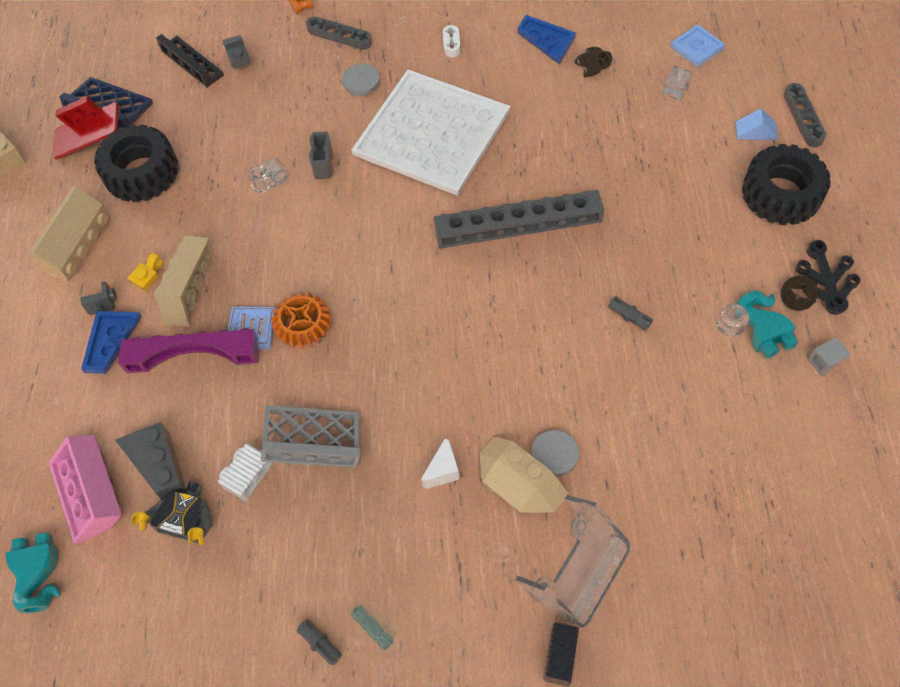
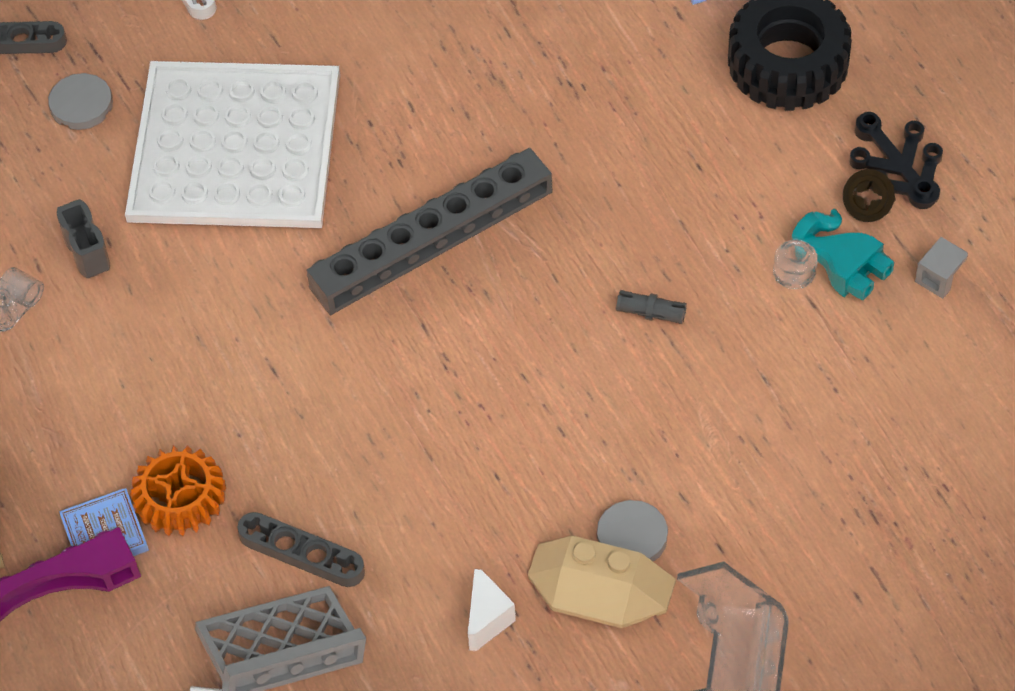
camera: 25 degrees left, 5 degrees down
(351, 384) = (299, 551): none -> dark grey beam

